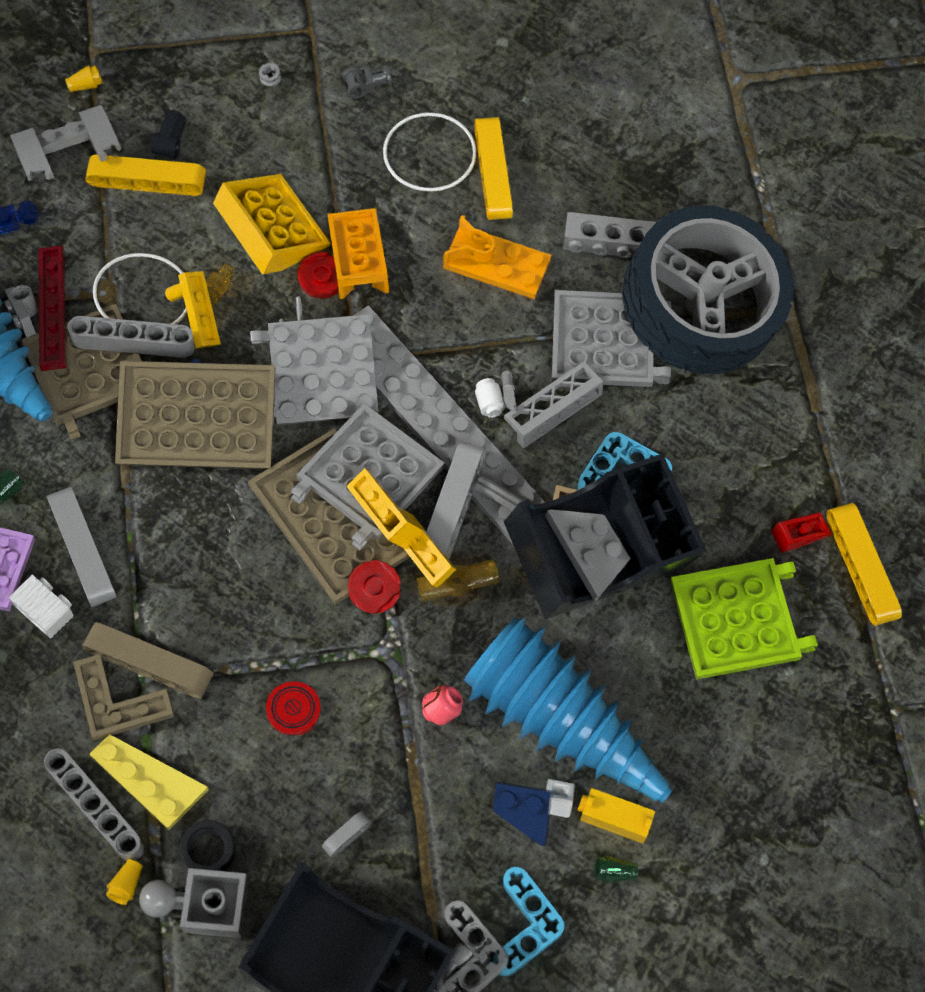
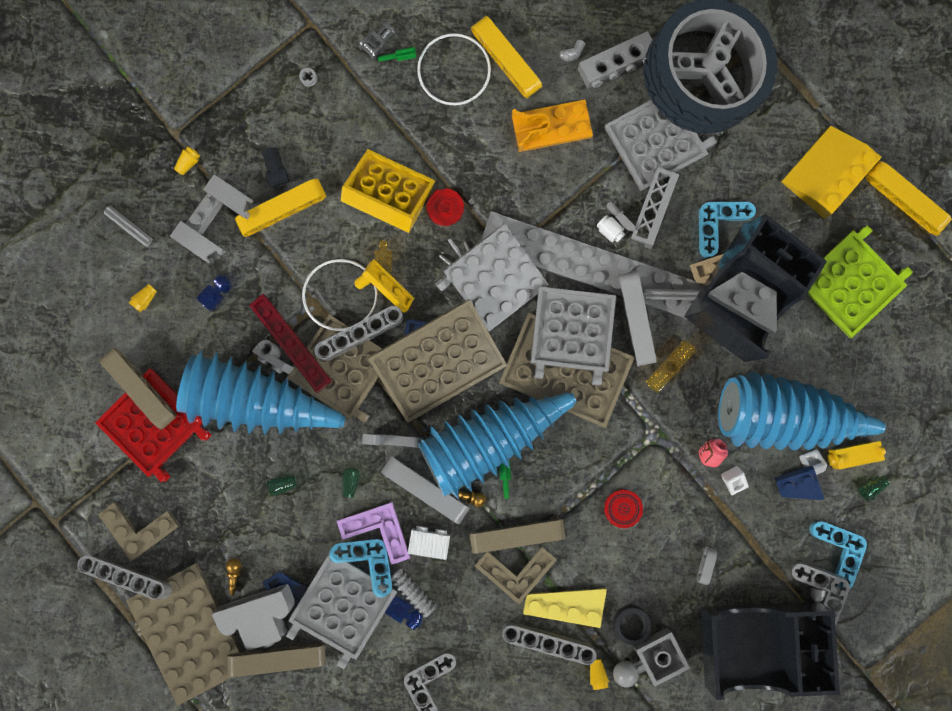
camera: 25 degrees left, 20 degrees up
(67, 455) = (381, 439): none -> light grey beam
(132, 595) = (477, 499): none -> pearl gold bar
(183, 587) = (505, 475): none -> green axle
(187, 524) = (488, 440): none -> dark azure cone
(358, 250) = (459, 176): light orange plate -> none
(374, 586) = (623, 403): red tile -> none
(382, 106) = (401, 54): none -> green axle
(401, 527) = (621, 359): yellow bracket -> none
(449, 760) = (735, 480): none -> white slope
(568, 204) = (573, 53): none -> light grey arm
(787, 483) = (830, 170): none -> yellow slope
(800, 531) = (856, 200): red slope -> none

